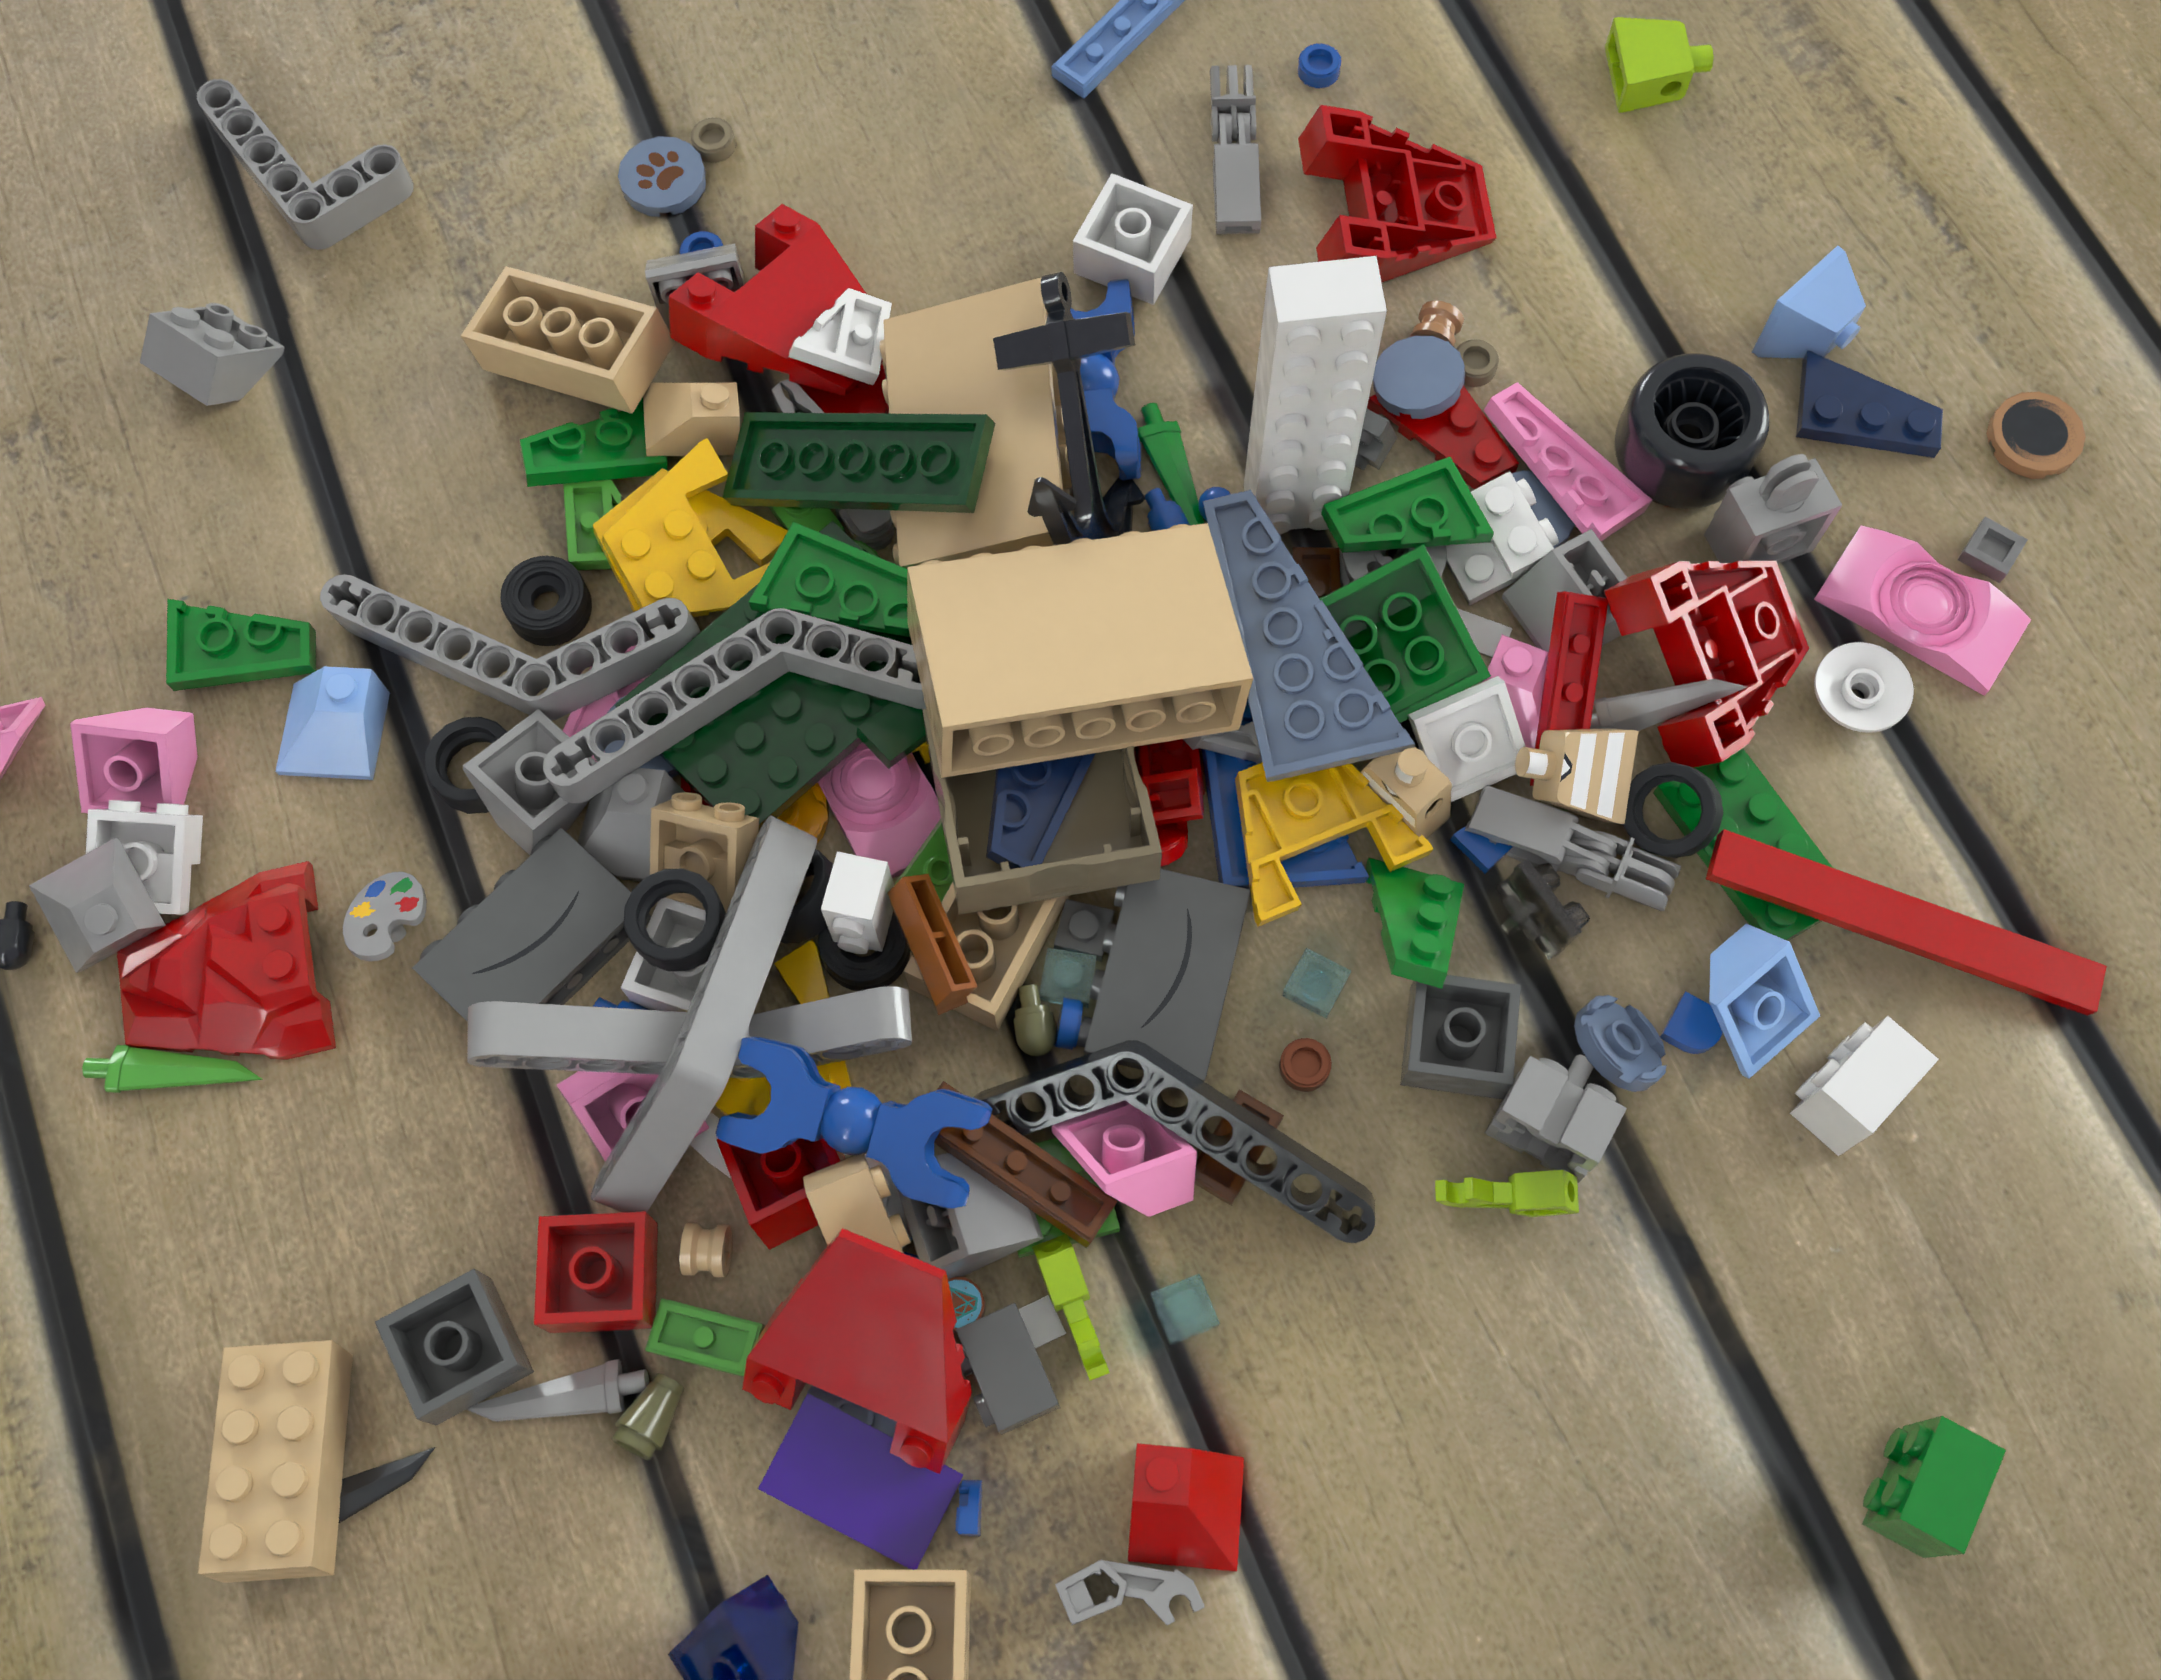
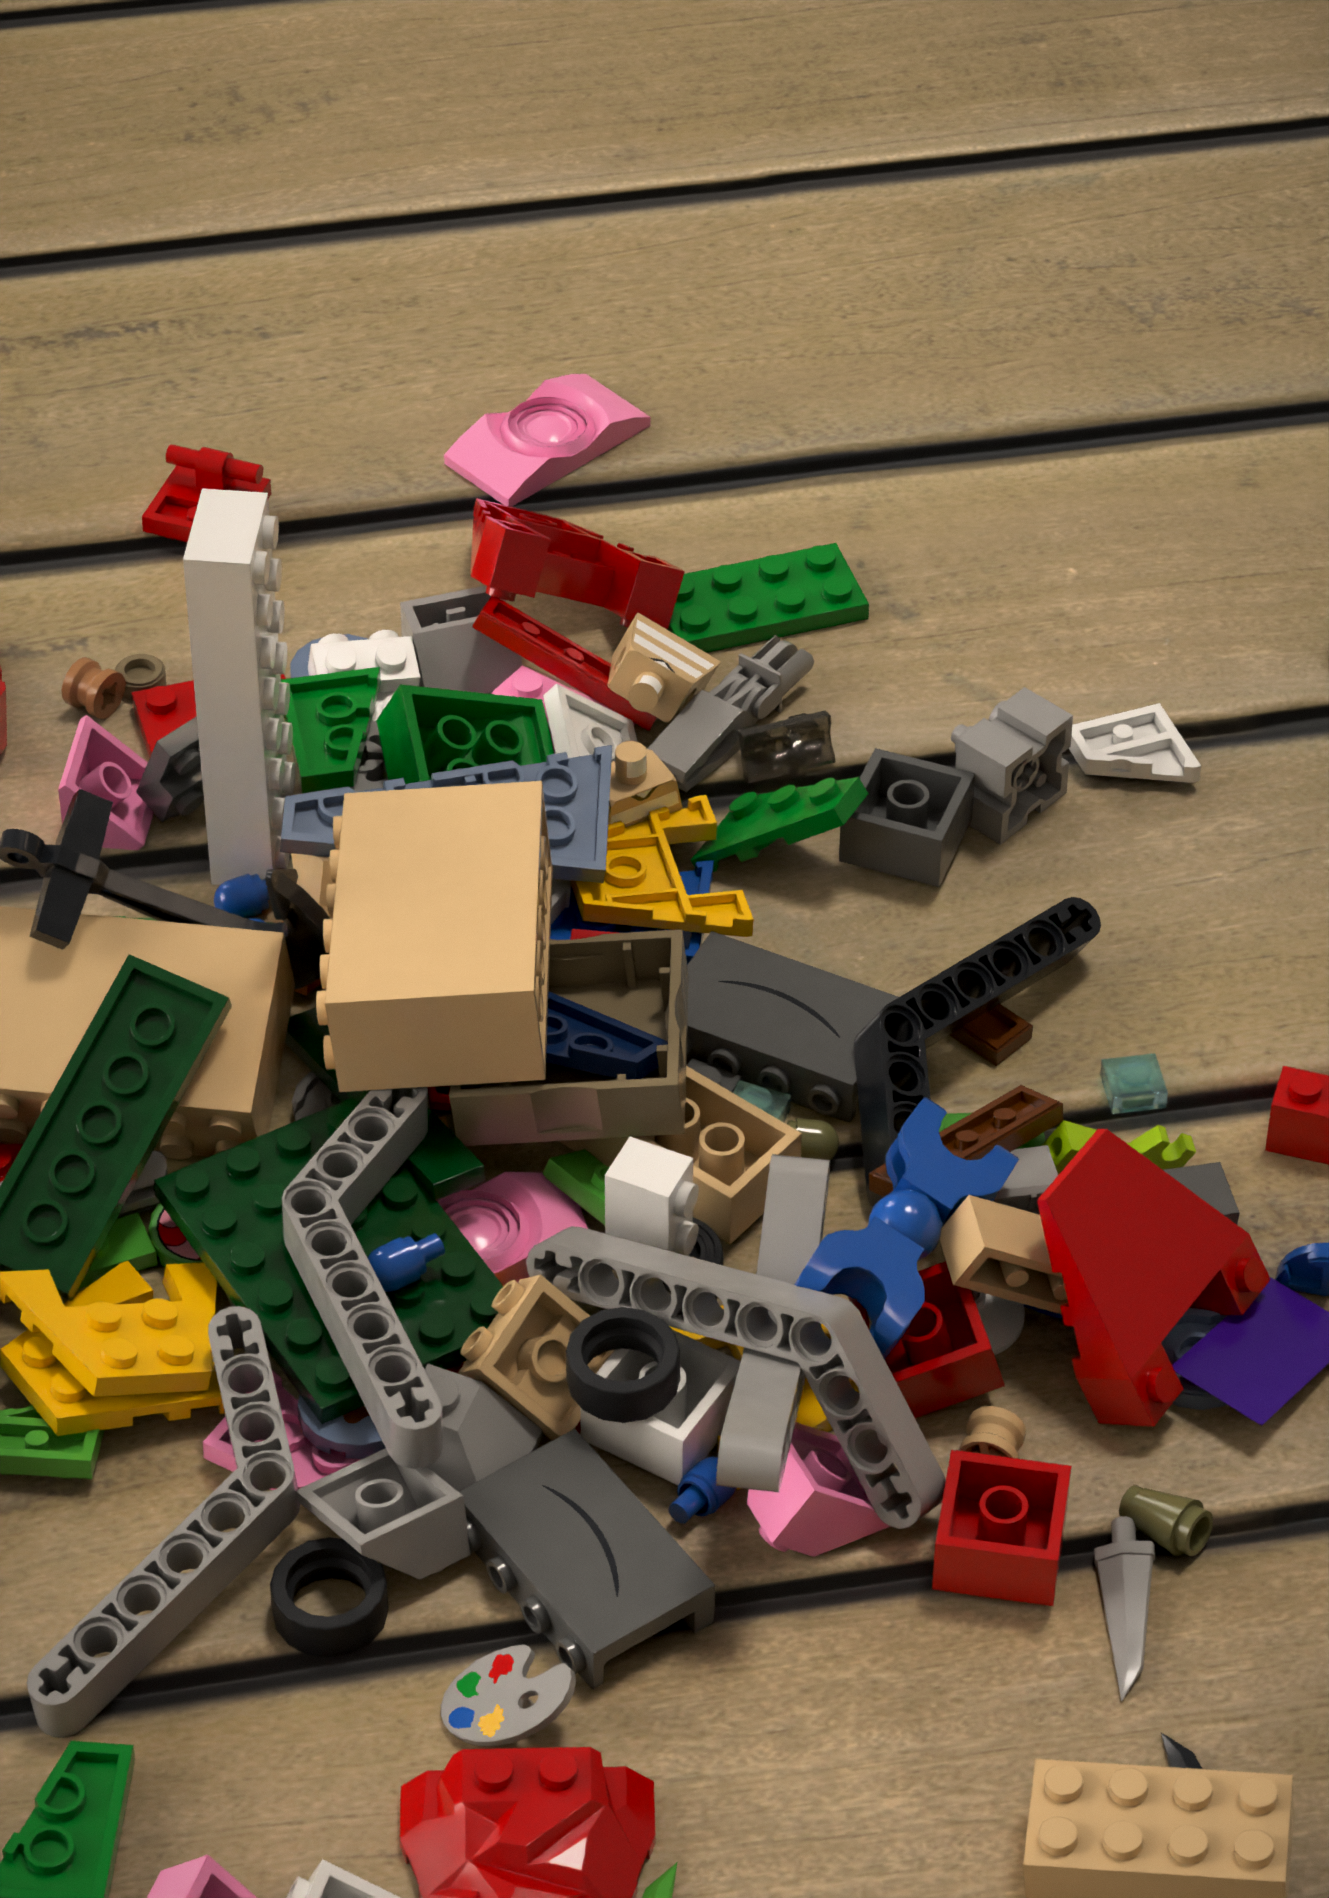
camera: 80 degrees left, 25 degrees down
(334, 724) = (219, 1738): light blue slope -> none
(454, 1347) = (1060, 1664): dark grey brick -> none
(539, 576) = (121, 1473): black tyre -> none
(702, 1337) = (1096, 1452): bright green plate -> none
(757, 722) = (404, 1260): none -> blue cylinder
(834, 583) = (245, 1169): green wing -> none
(932, 942) = (729, 1149): dark orange piece -> none
(1069, 1023) = (811, 1103): blue tile -> none
(1132, 1157) = (977, 1064): bright pink slope -> none
(1305, 1064) = (899, 951): copper tile -> none
(1316, 983) = (817, 920): clear light blue plate -> none
(1419, 376) = (149, 701): sand blue tile -> none
(1479, 849) = (708, 781): blue tile -> none
(1524, 1193) = (1072, 816): lime piece -> none
(1570, 469) = (342, 611): bright pink wing -> none
(1620, 1043) = (942, 713): sand blue tile -> none
(1647, 1238) = (1134, 745): none -> white wing
(1653, 706) = (600, 616): light grey bar -> none
(1691, 430) = (326, 518): black wheel -> none
(1692, 1026) = (930, 677): blue tile -> none
(1710, 806) = (737, 598): black tyre -> none
(1714, 332) = (176, 502): none -> red plate
(1759, 996) = (912, 620): light blue slope -> none
(1774, 514) = (427, 490): light grey brick -> none
(1814, 312) = (199, 409): light blue slope -> none
(1861, 1084) = (1028, 564): white brick -> none
(1863, 412) = (316, 427): dark blue wing -> none
(1873, 672) = (623, 485): white dish -> none
(1906, 922) = (869, 514): red tile -> none
(1992, 549) = (506, 376): flat silver plate -> none
(2036, 435) = (391, 324): tile -> none

